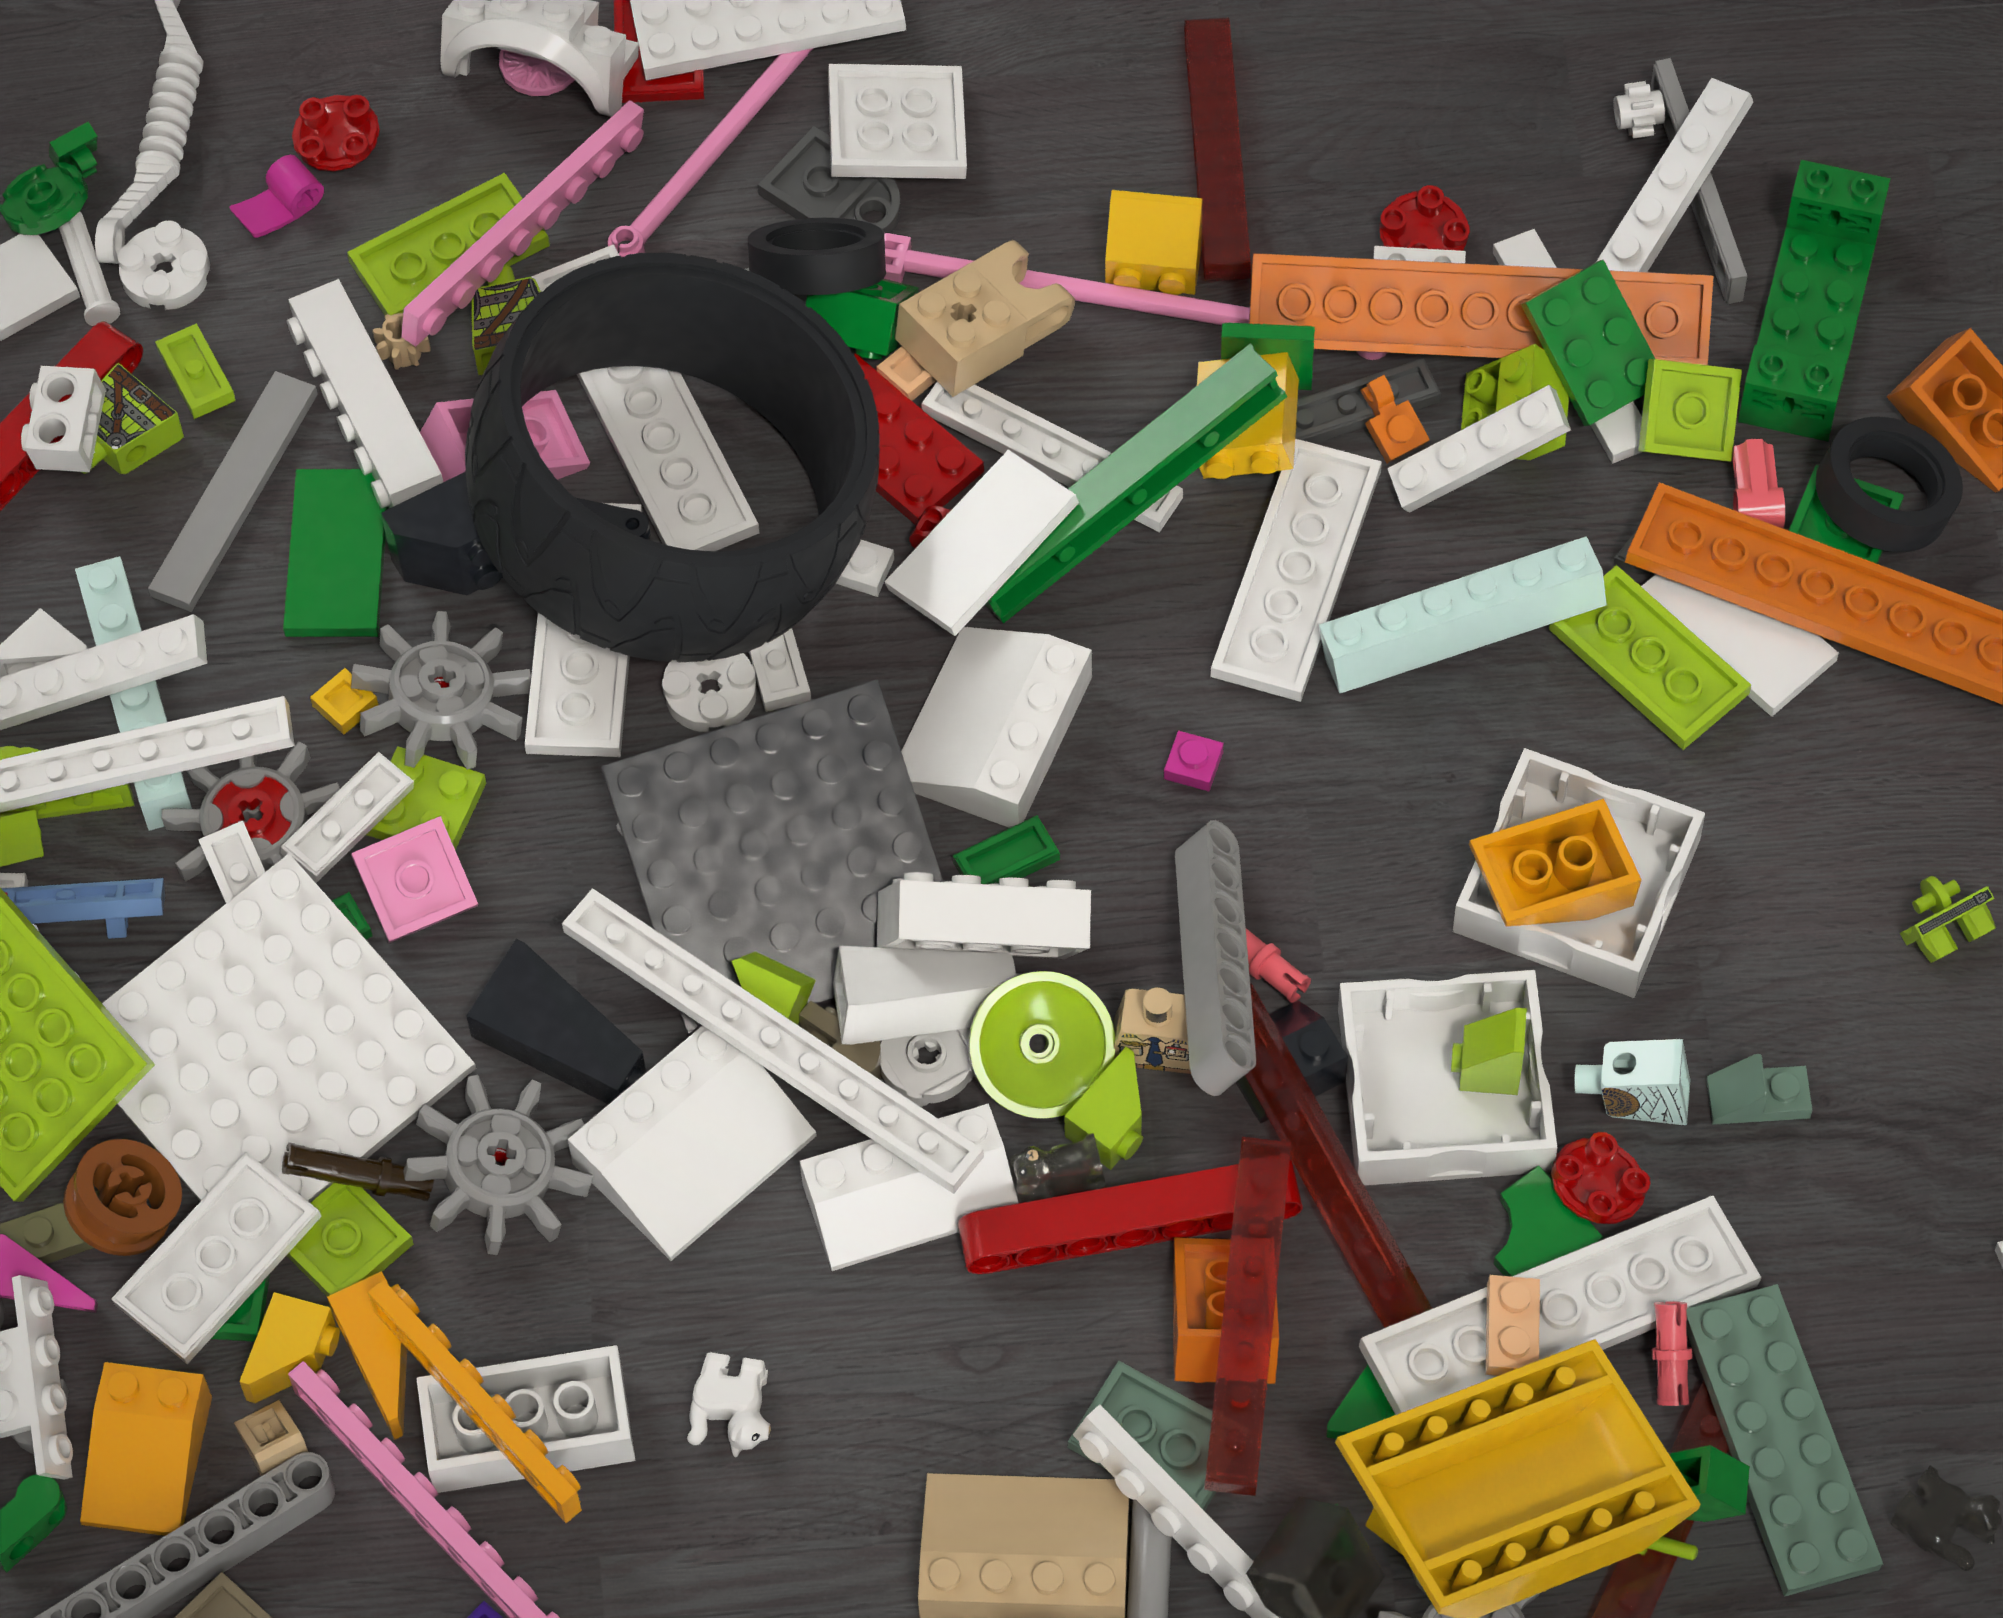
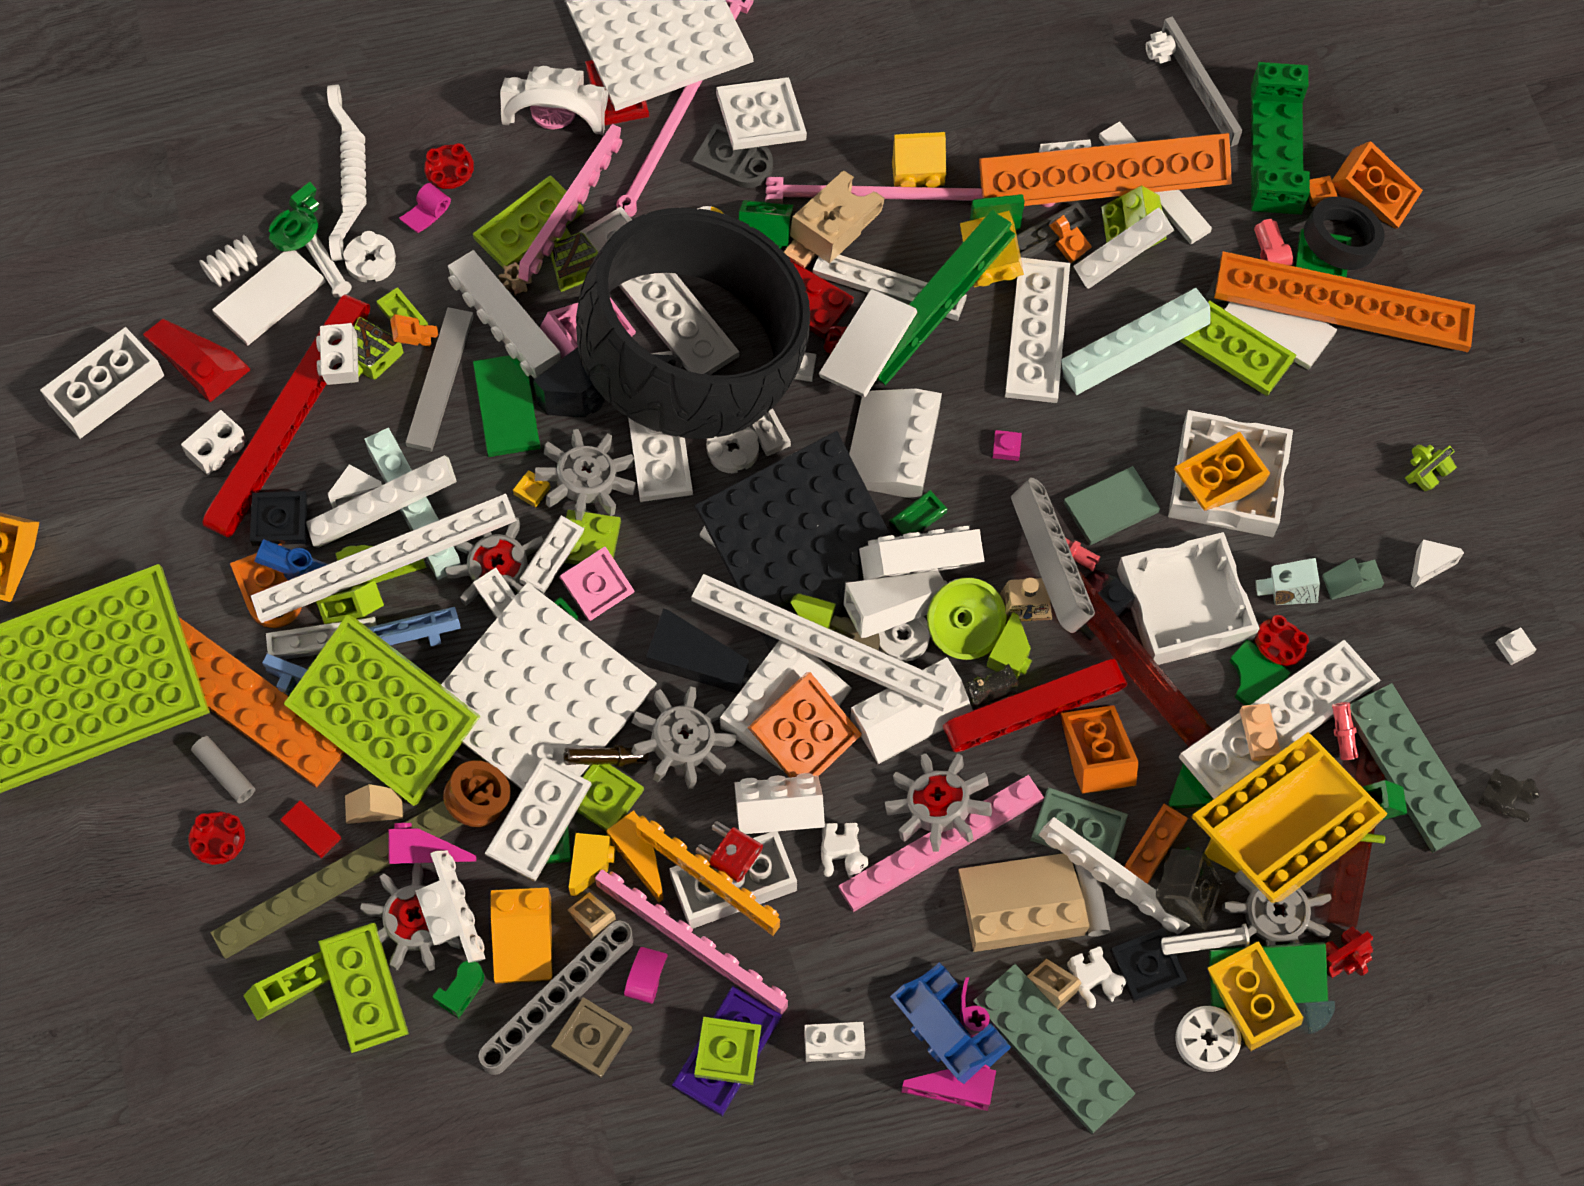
camera: 15 degrees left, 5 degrees up
(196, 400) = (409, 331): none -> orange plate
(334, 1557) = (645, 975): none -> dark pink panel
(530, 1371) = (734, 854): none -> red piece
(633, 1303) = (779, 804): none -> white brick
(710, 1188) = (805, 729): none -> orange plate
(818, 255) = (739, 194): black tyre -> none
(907, 1424) = (920, 855): none -> bright pink plate
(916, 1349) = (939, 801): none -> light grey gear
(1217, 149) = (938, 100): clear red beam -> none
(1248, 1317) = (1119, 753): clear red tile -> none
(1303, 1472) = (1155, 843): none -> orange tile
(1354, 894) = (1111, 505): none -> sand green tile
(1424, 221) = (1060, 126): red dish -> none
(1491, 1053) = (1211, 581): lime slope -> none
(1591, 341) = (1172, 179): green plate -> none
(1677, 178) = (1192, 83): white plate -> none
(1690, 410) = (1229, 209): lime plate -> none
(1865, 399) = (1320, 189): none -> orange tile
(1912, 1085) = (1432, 560): none -> white slope

